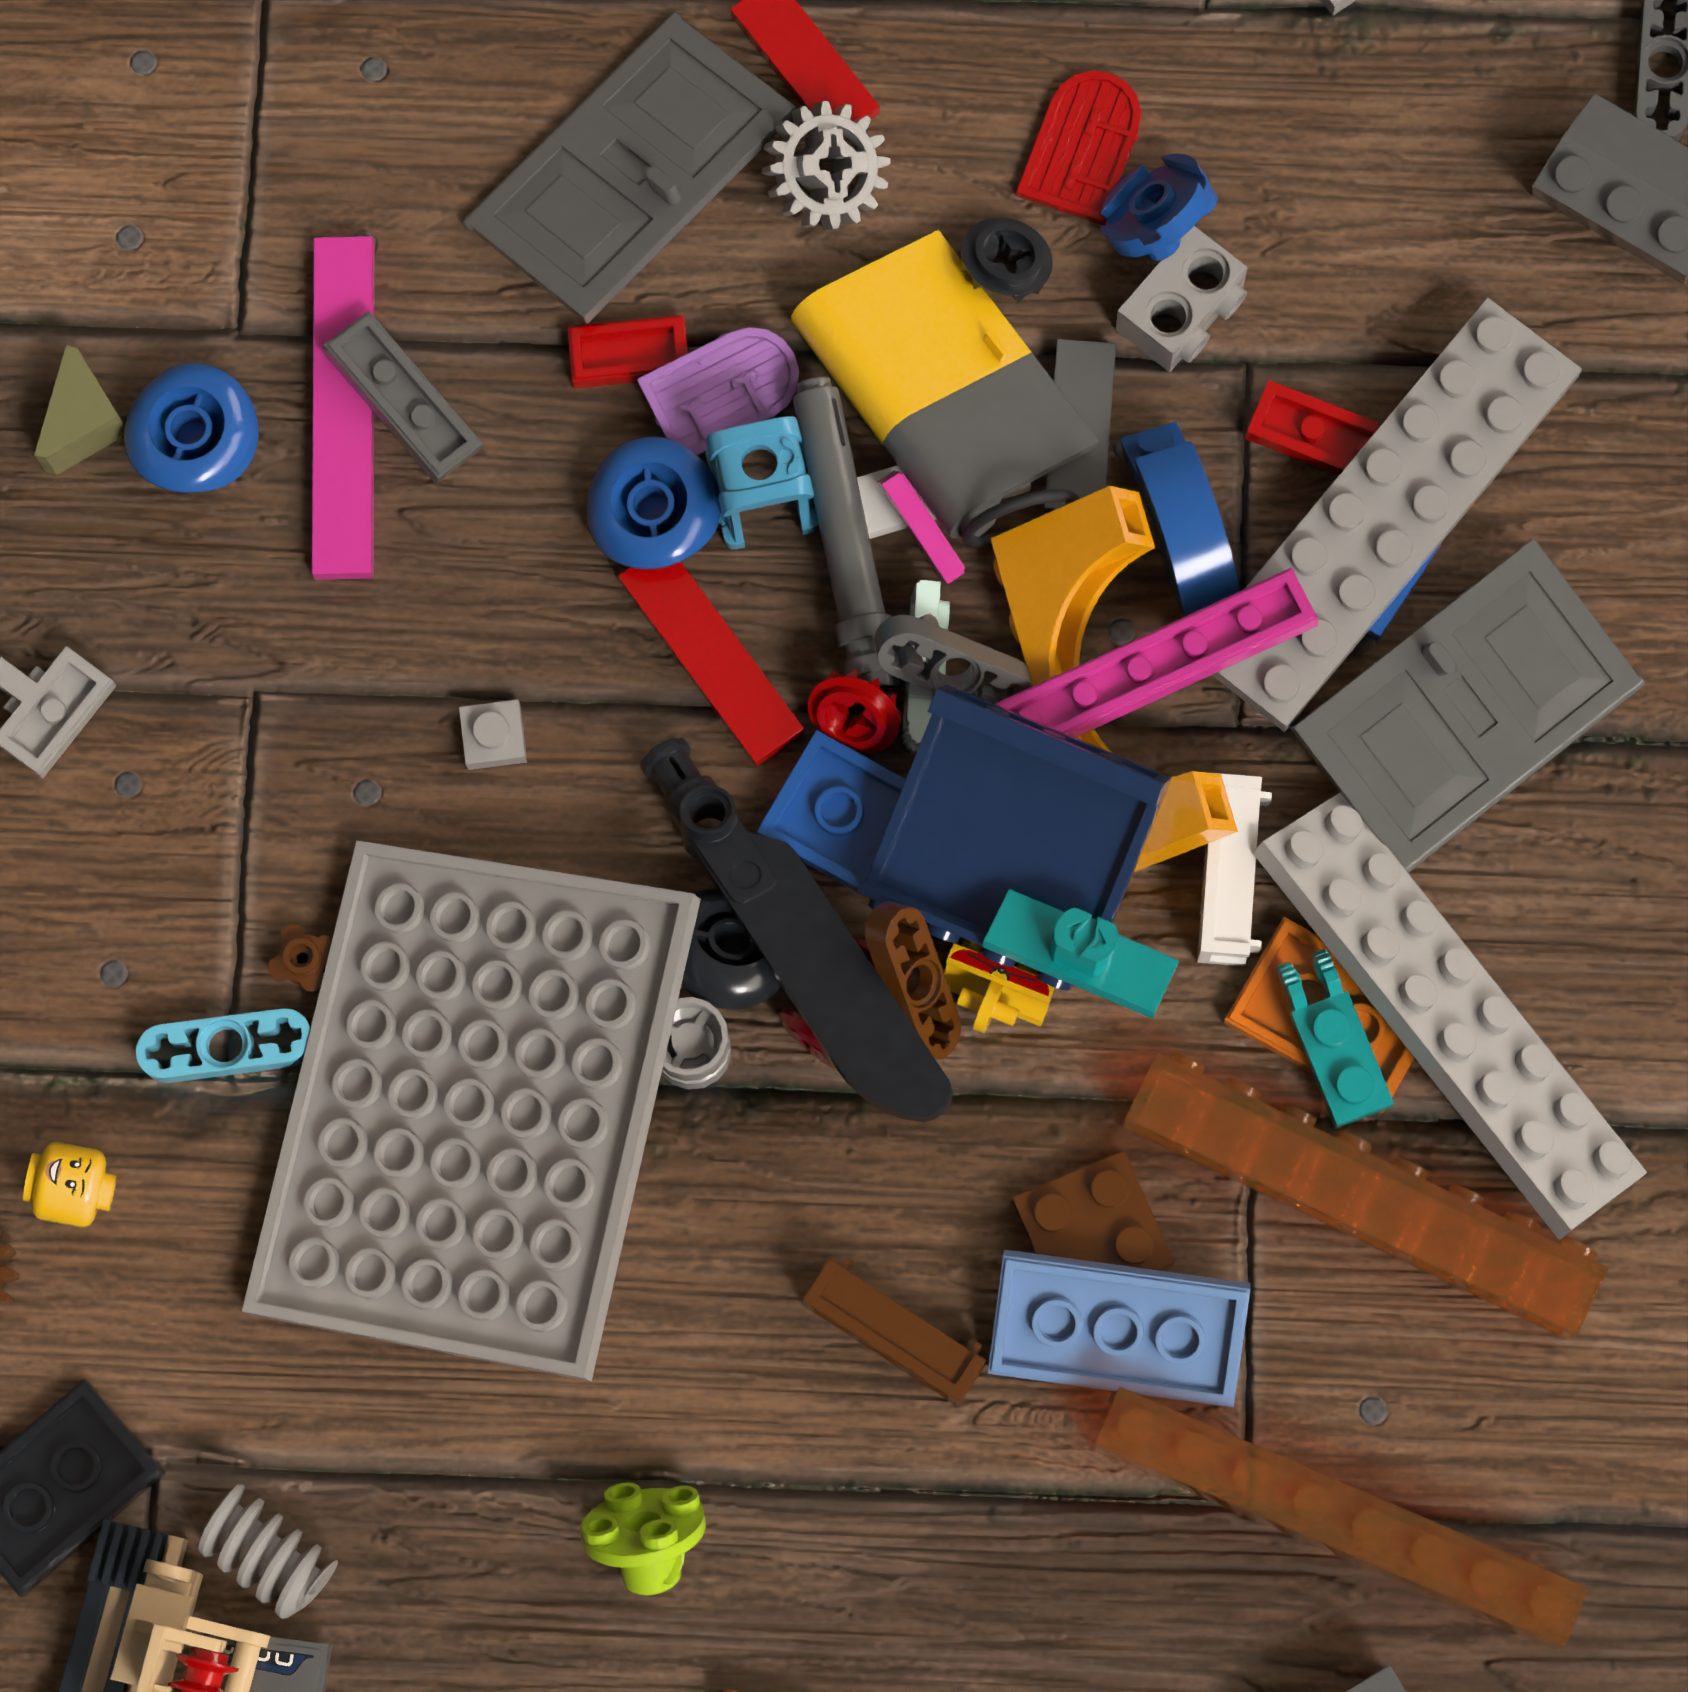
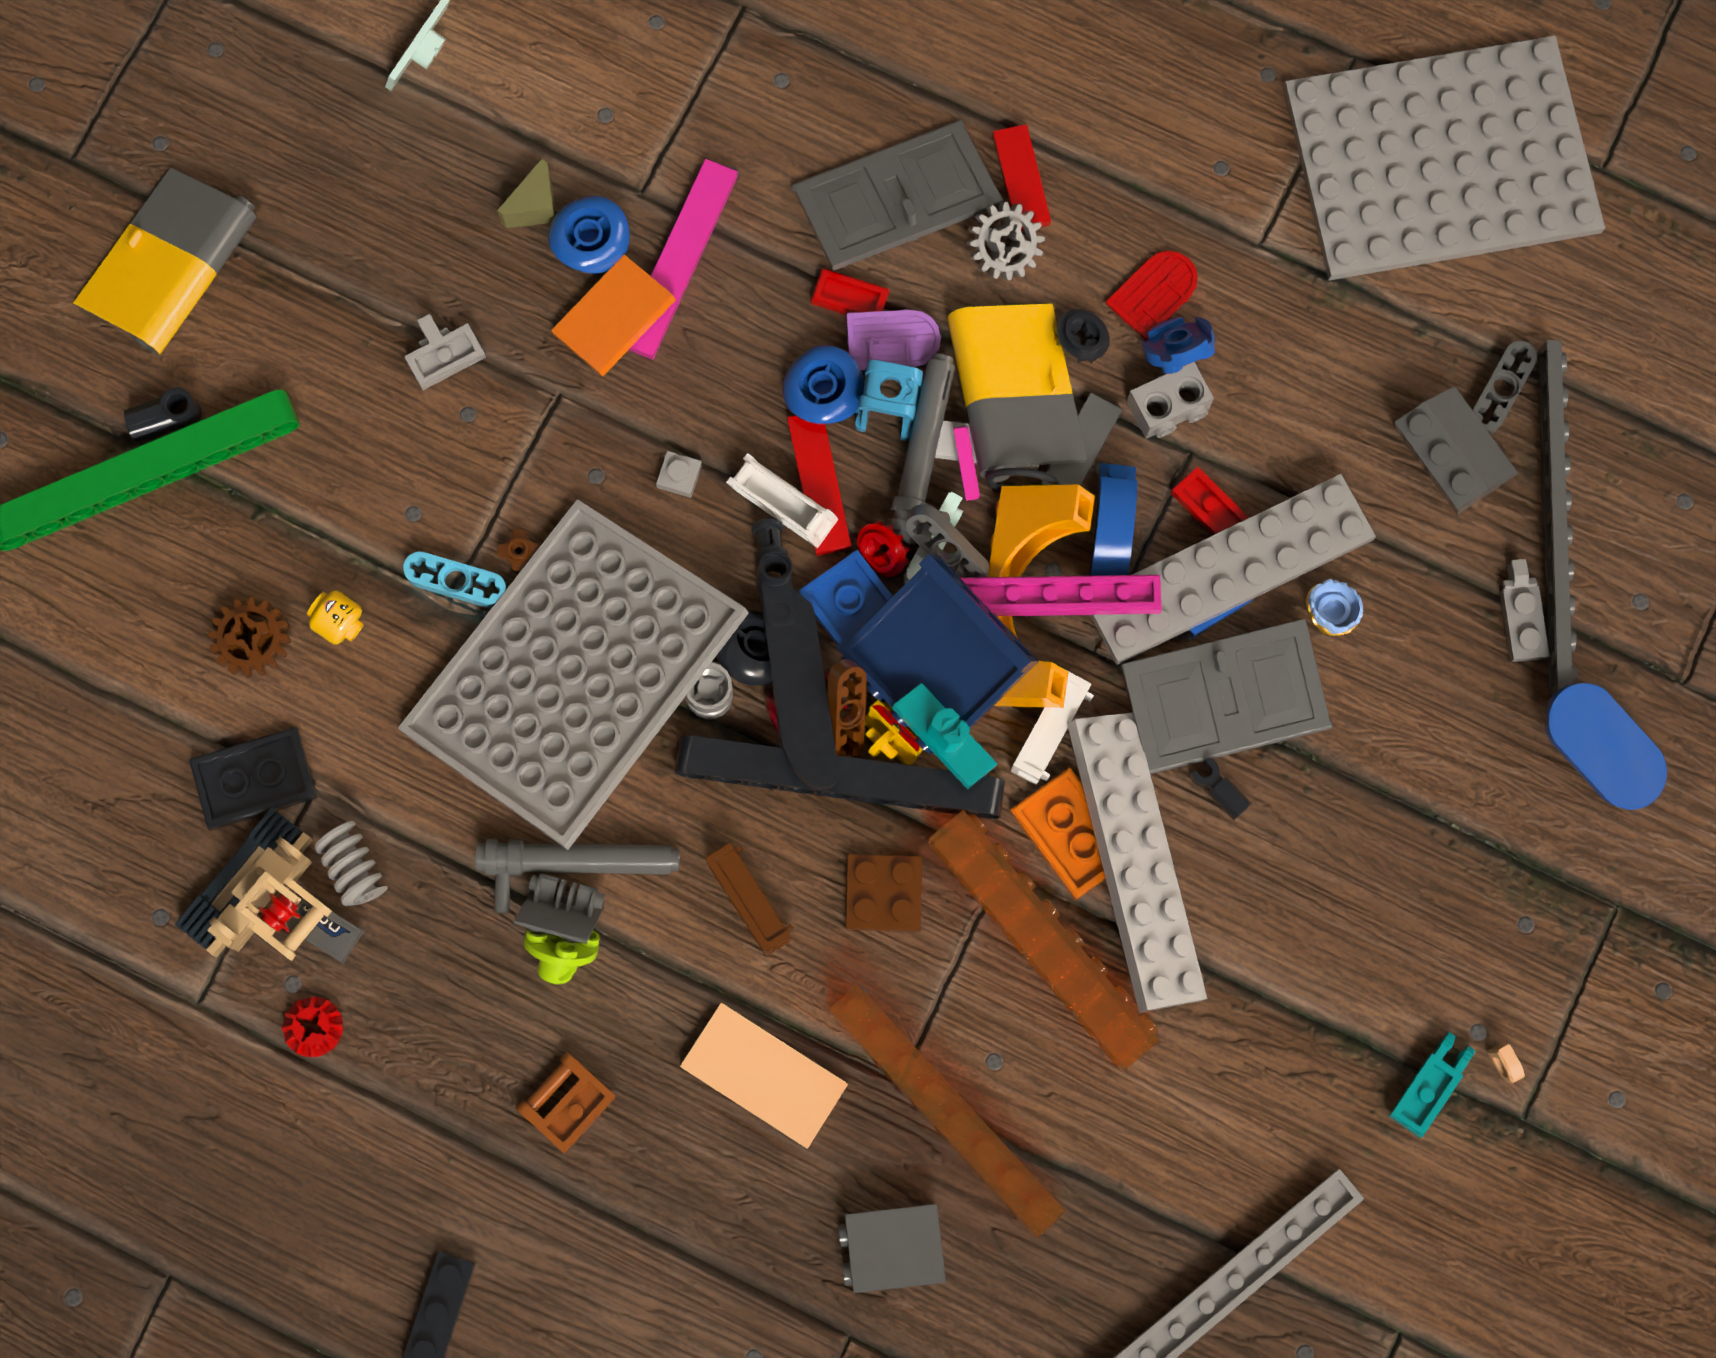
camera: 15 degrees right, 0 degrees up
(283, 537) = (613, 315): none -> orange tile
(402, 397) = (713, 267): dark grey tile -> none
(516, 1425) = (517, 857): none -> dark grey cylinder
(620, 1483) = (561, 914): none -> dark grey hinge
(671, 707) = (783, 501): none -> white container
(980, 1075) = (857, 779): none -> black beam
(1039, 1588) = (764, 1075): none -> light nougat tile
(1119, 1328) = (873, 952): medium blue tile -> none
(1335, 1045) = (1065, 851): teal hinge -> none
(1526, 850) = (1222, 790): none -> black bar
(1567, 502) = (1334, 607): none -> light blue hair

